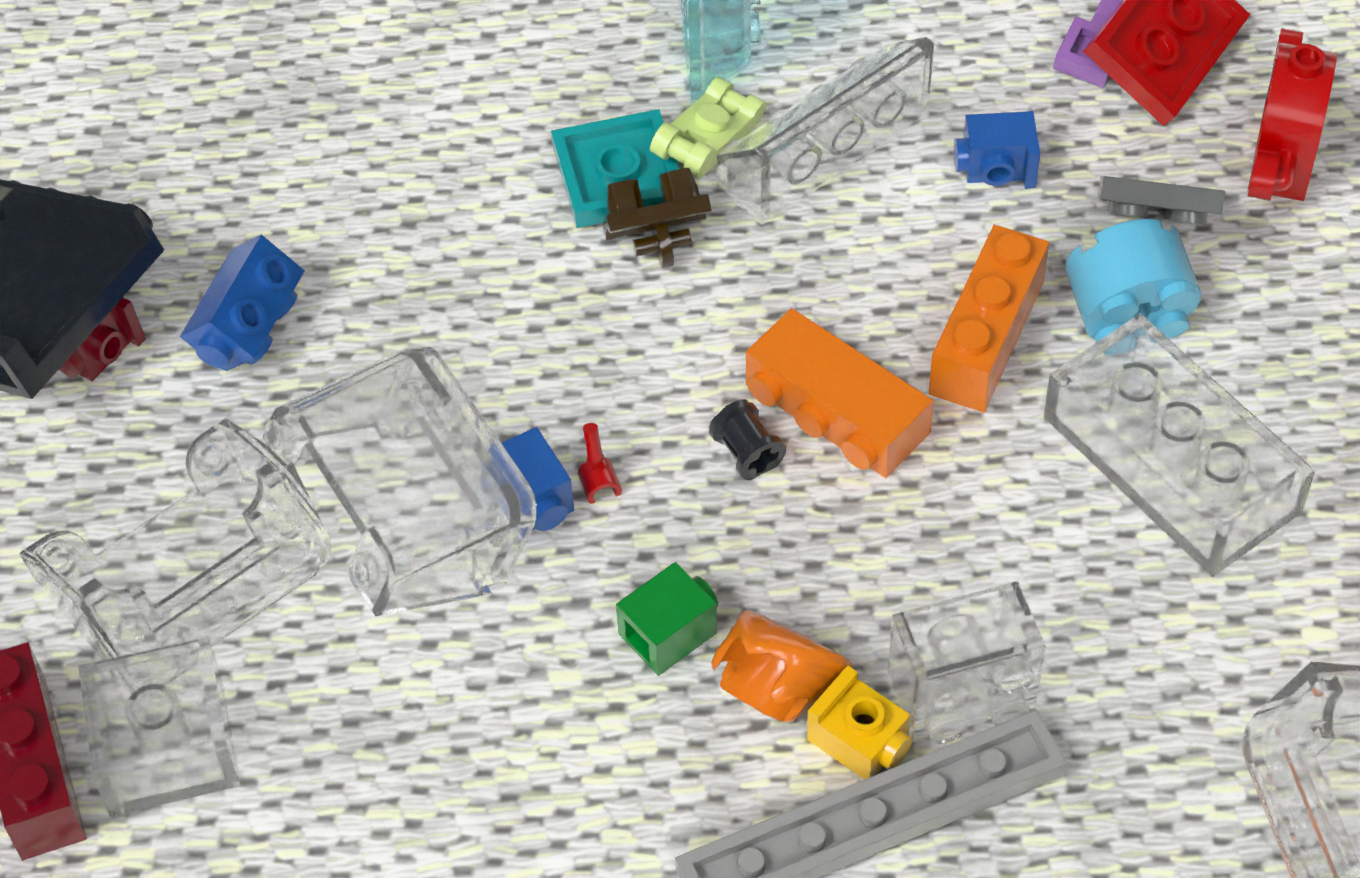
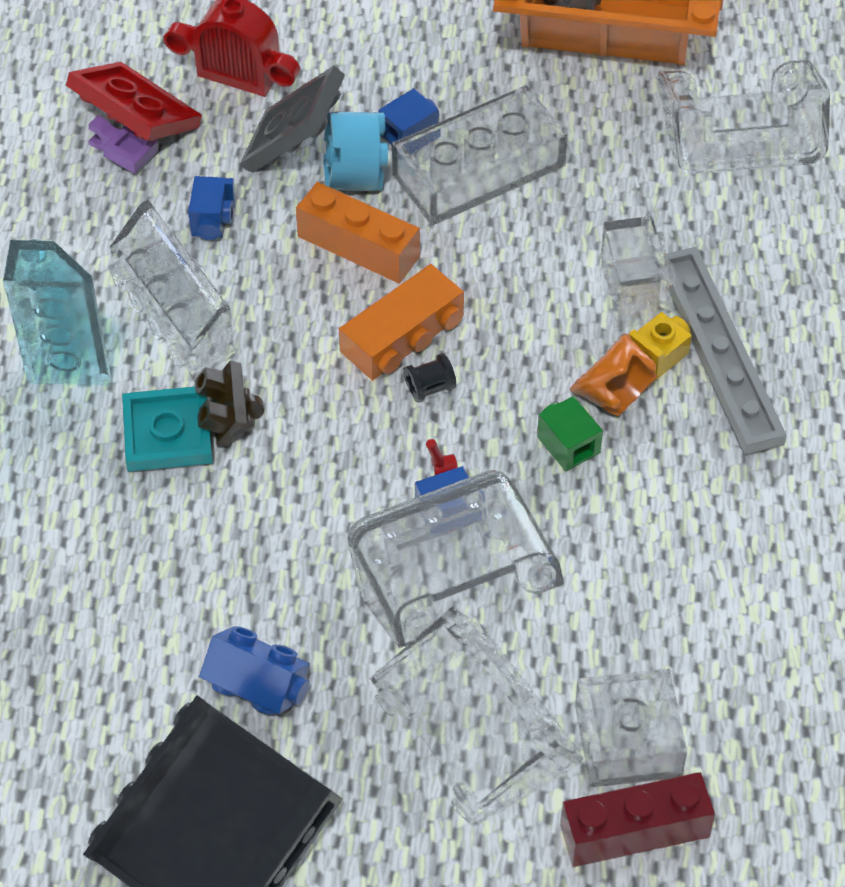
camera: 85 degrees left, 0 degrees up
(708, 127) = (151, 365): yellowish green plate -> none
(1234, 351) = (408, 115): none -> blue brick

